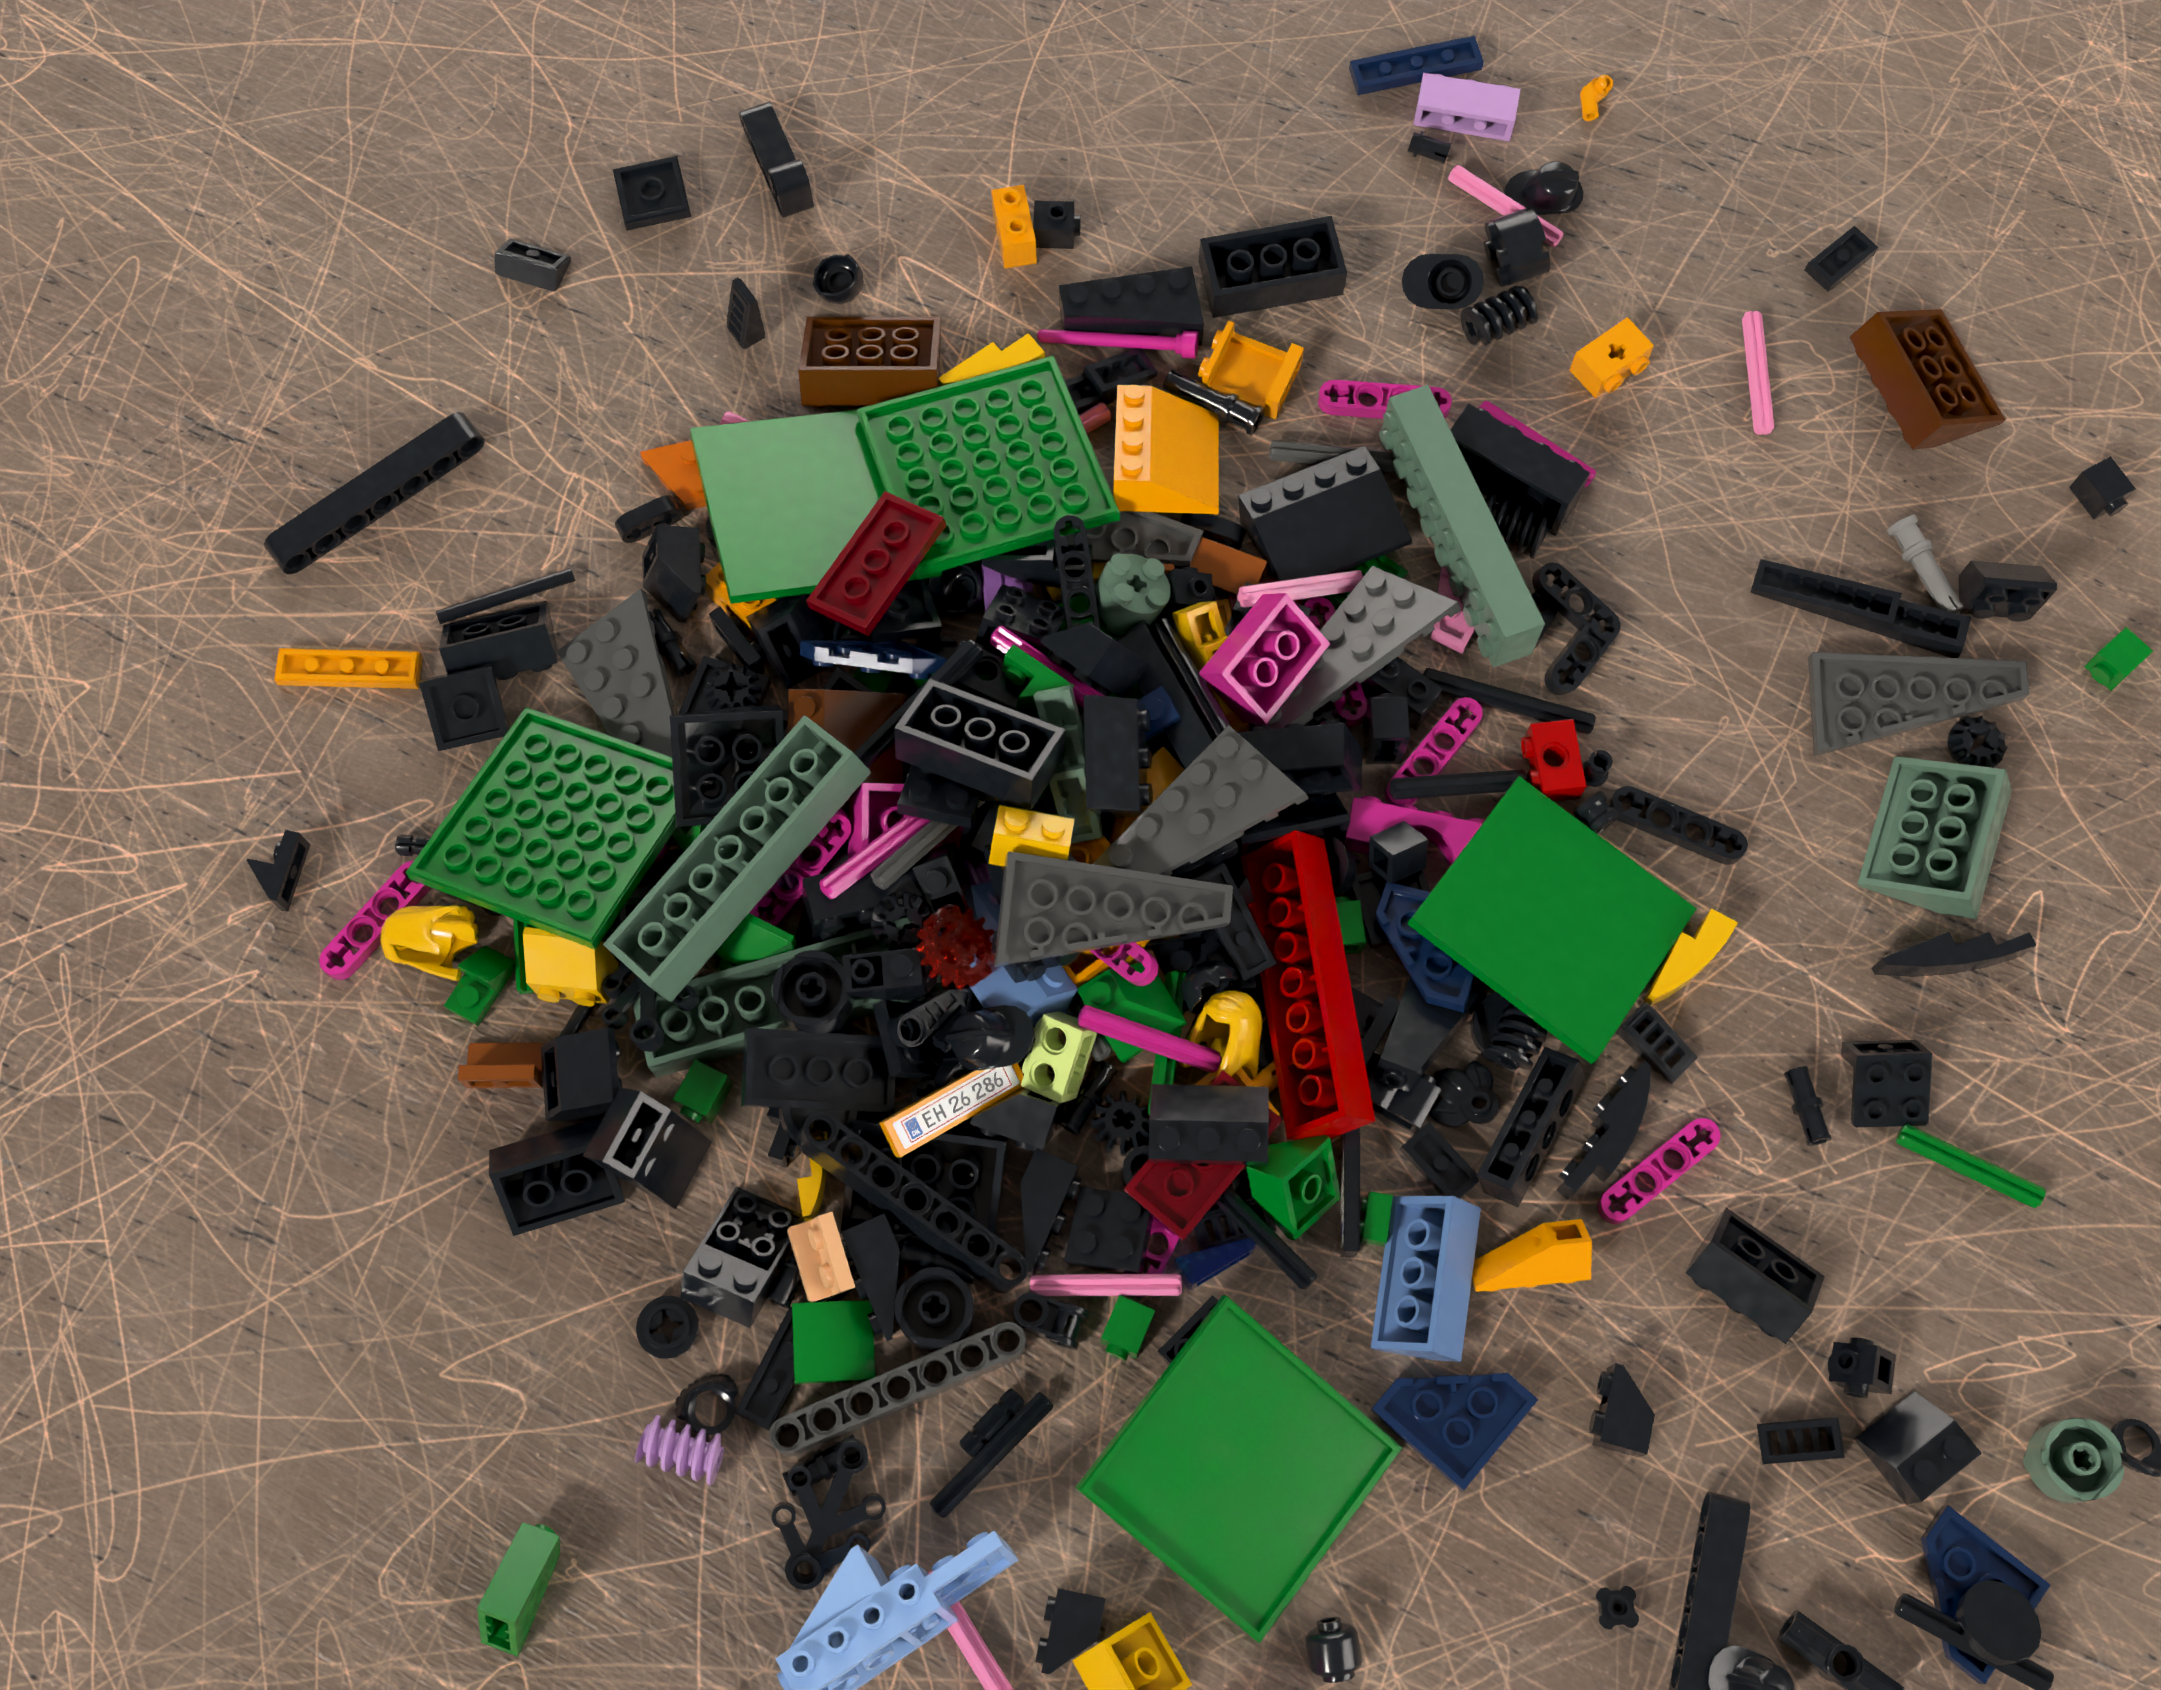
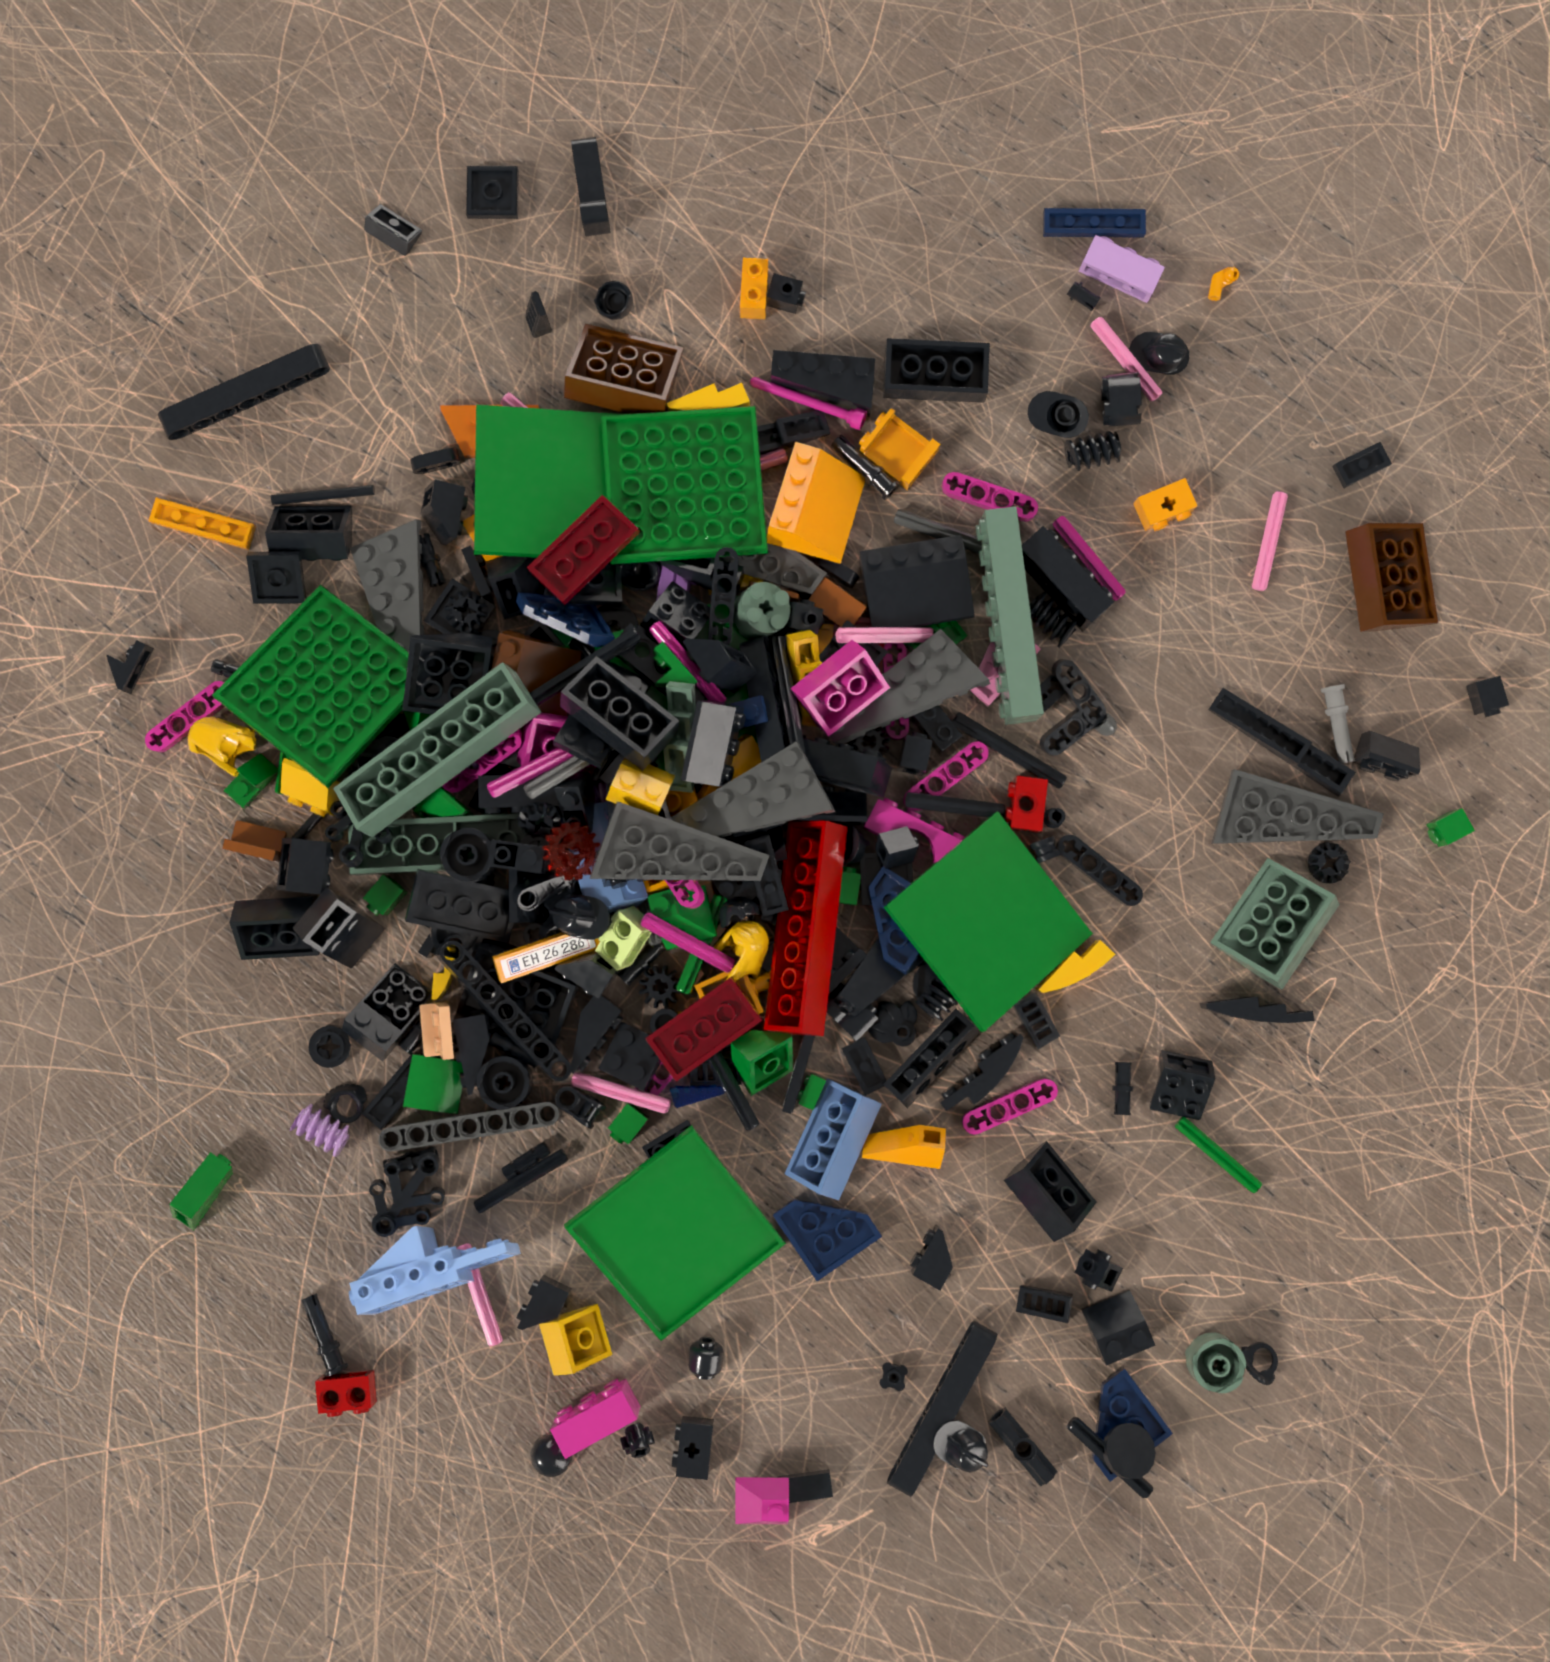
camera: 10 degrees right, 15 degrees up
(1209, 1125) = (710, 1013): black slope -> none
(1627, 639) = (1107, 726): none -> dark grey hinge

